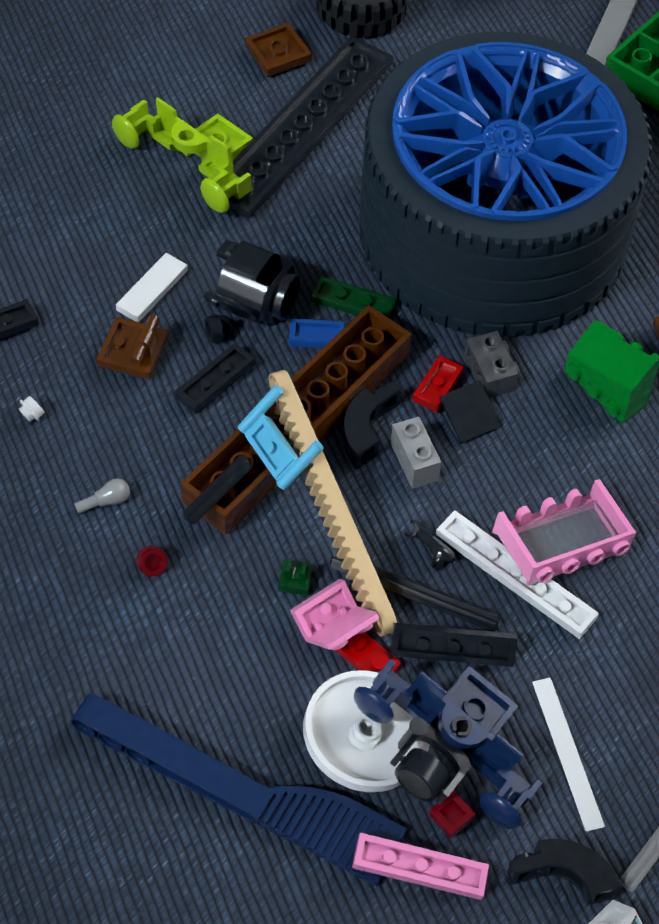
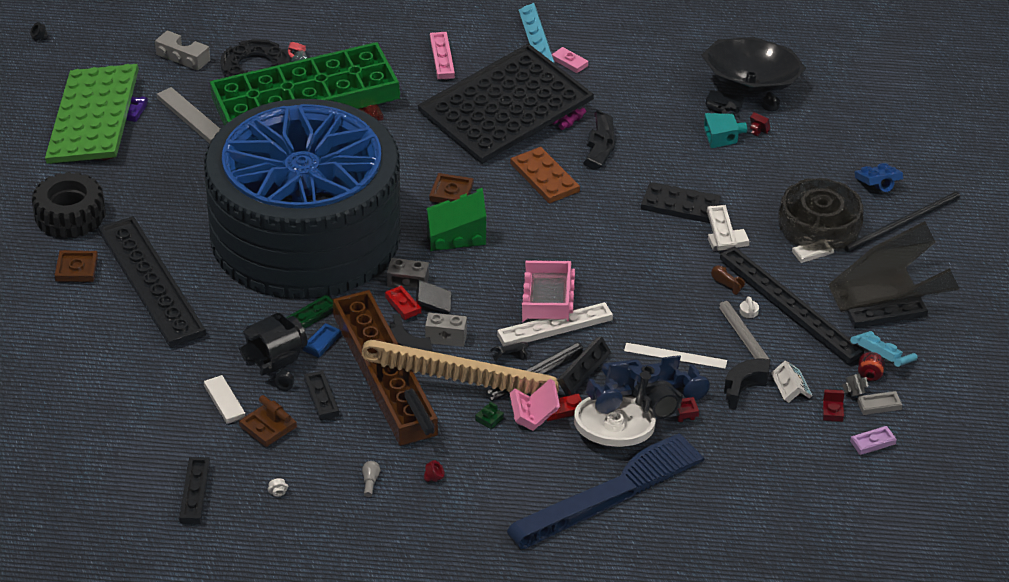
camera: 60 degrees left, 15 degrees down
(214, 142) = (130, 325): lime piece -> none
(272, 445) = (410, 374): medium azure plate -> none
(420, 866) = (707, 433): bright pink plate -> none

